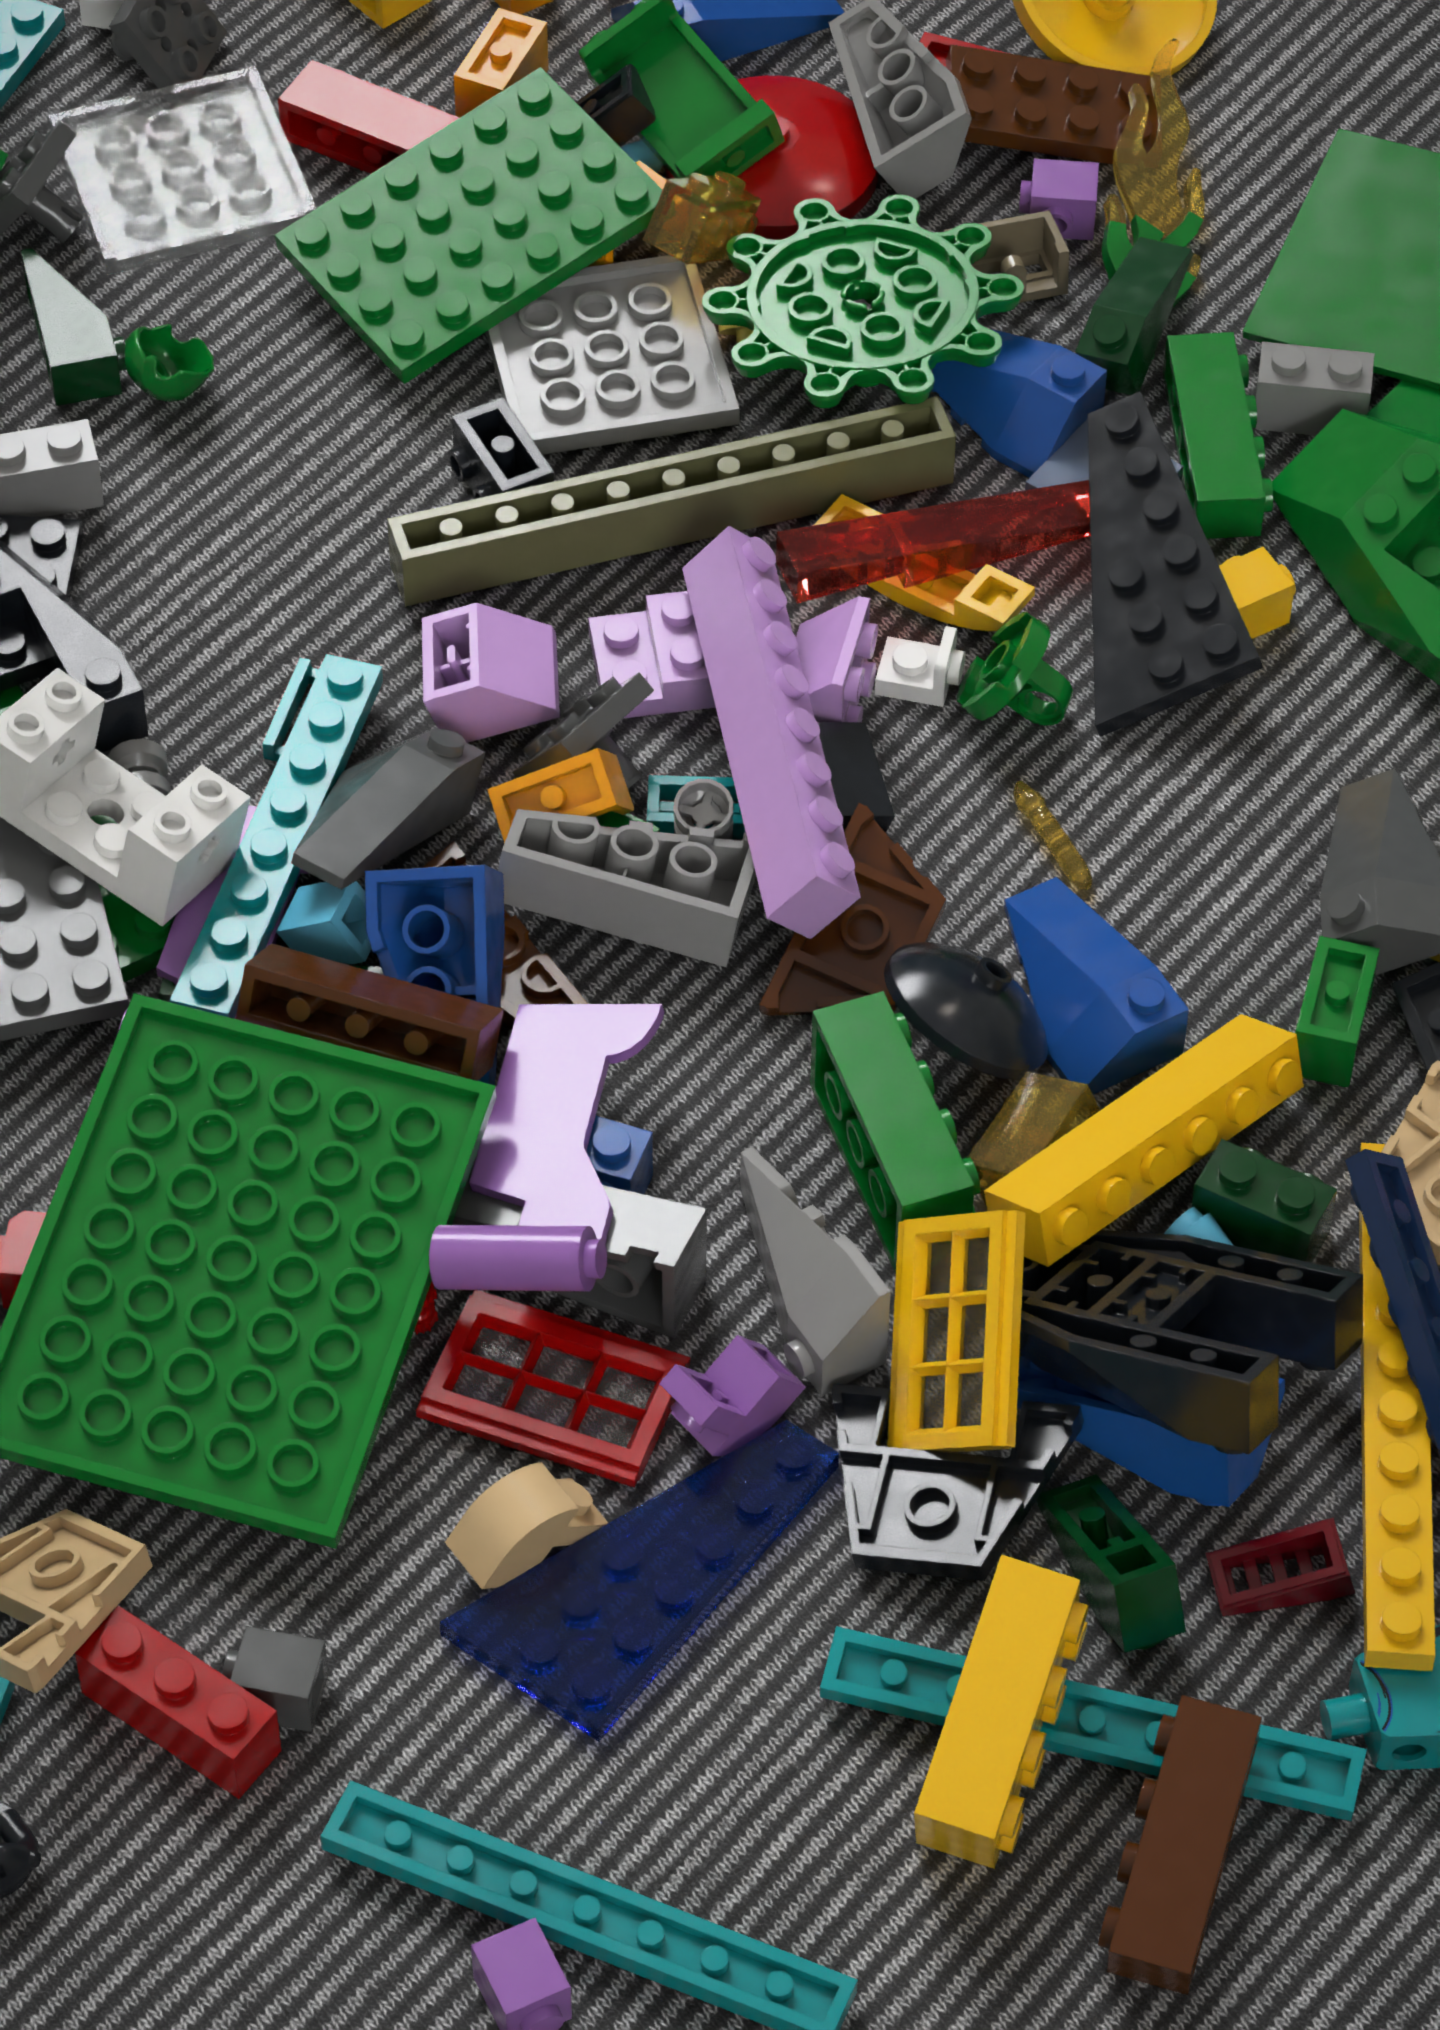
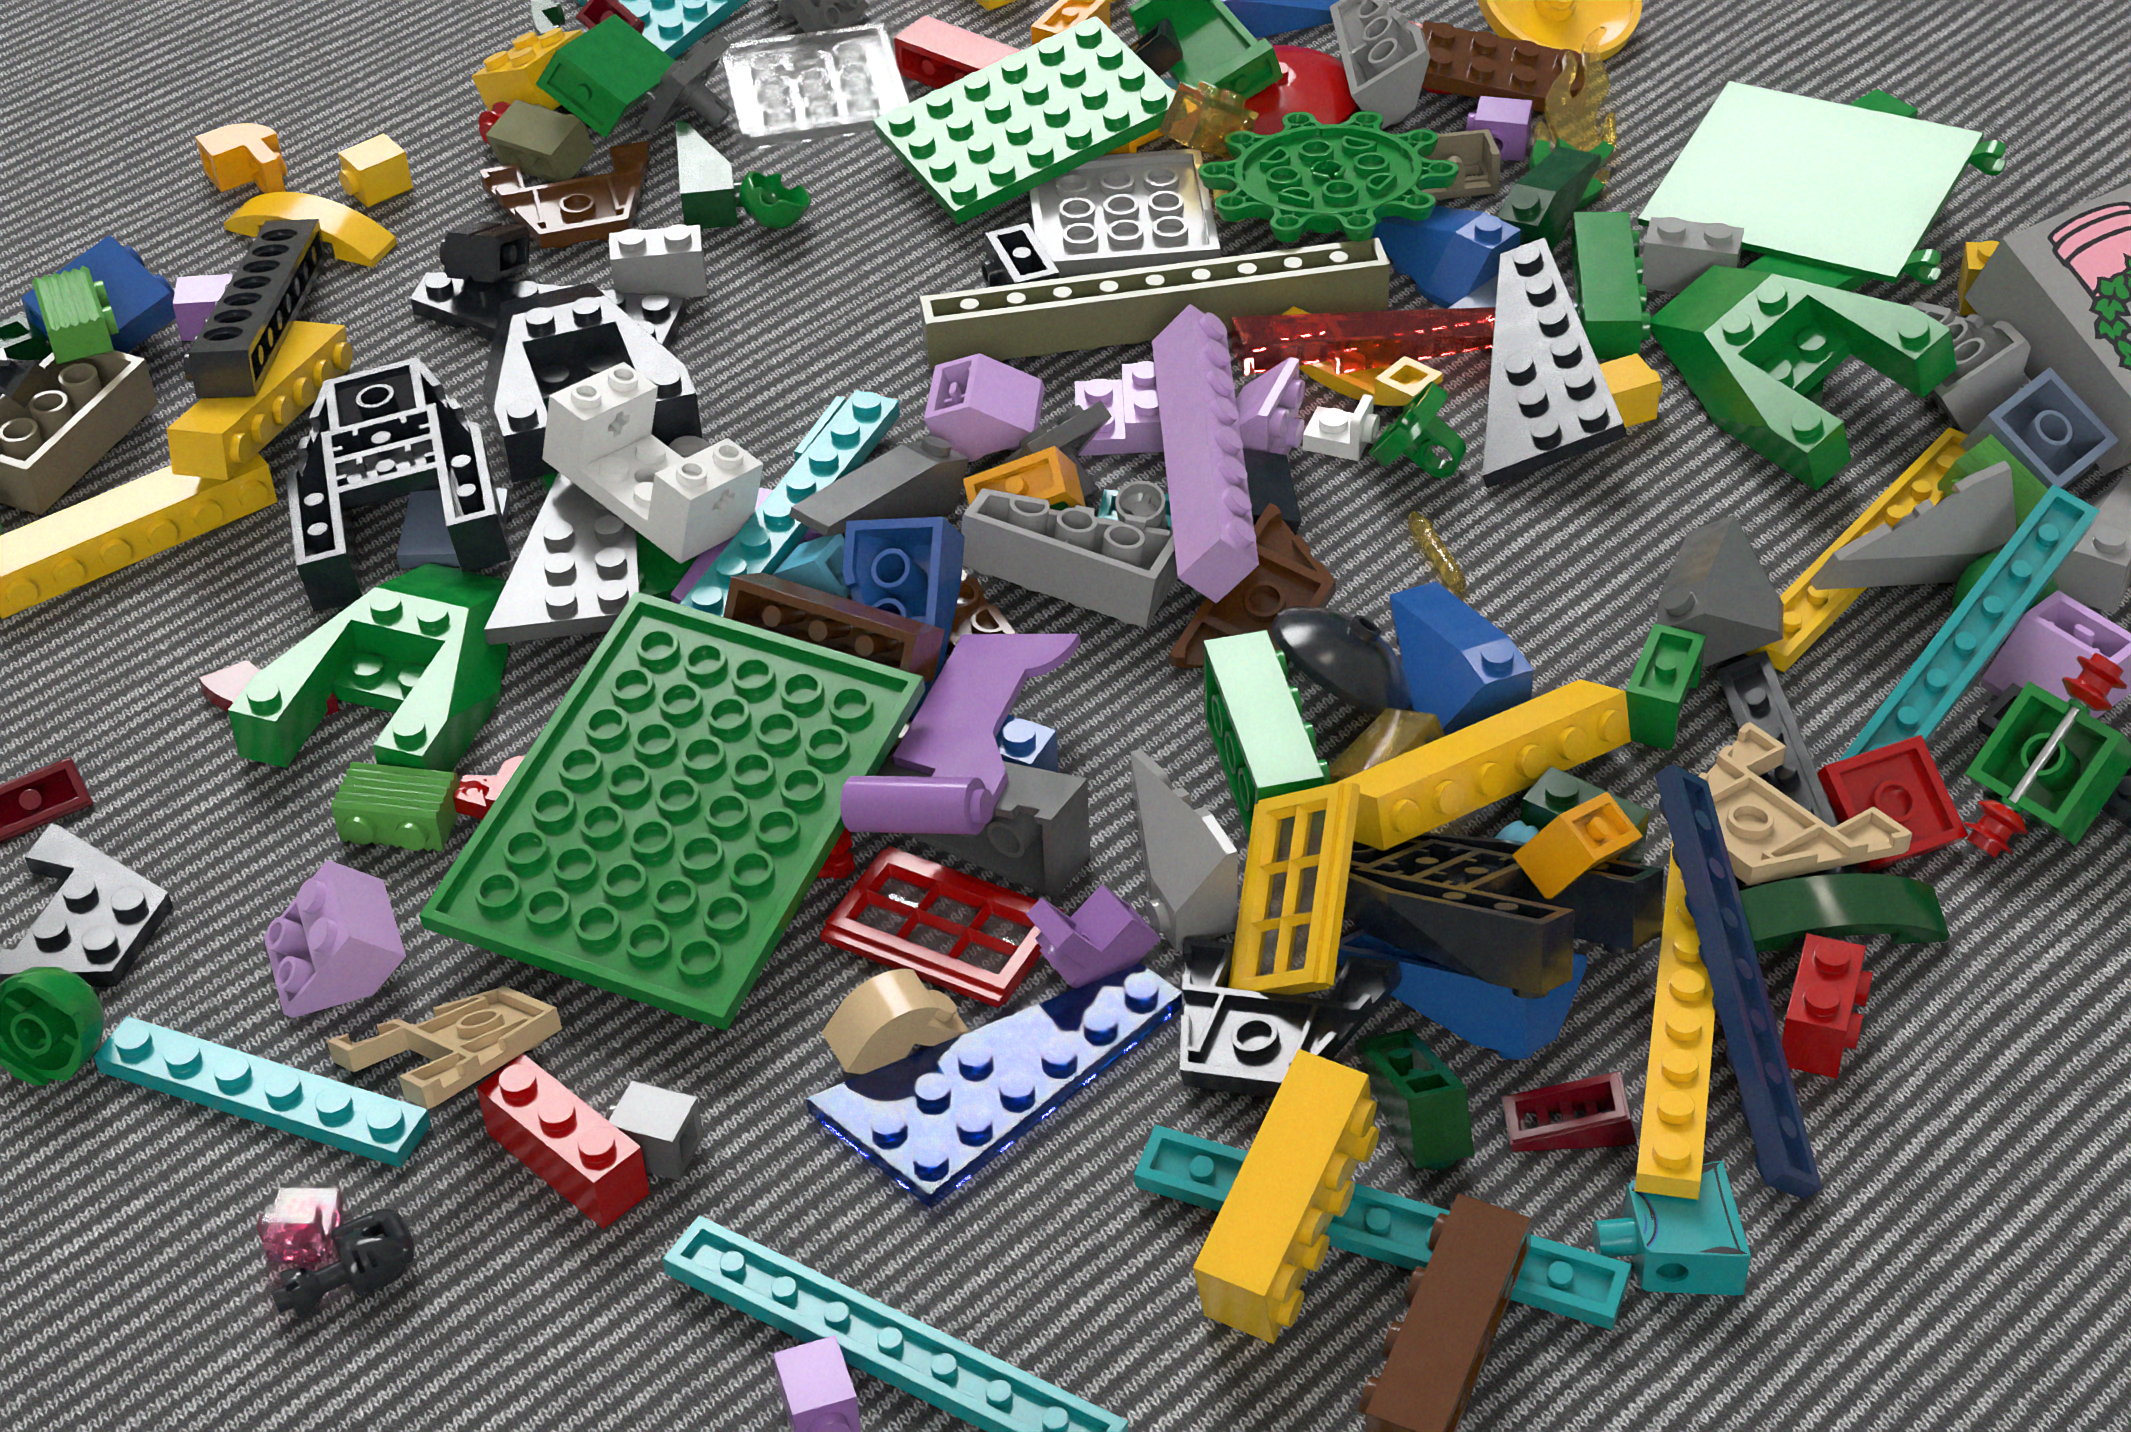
camera: 10 degrees right, 10 degrees down
(1265, 1250) = (1576, 844): none -> light orange panel

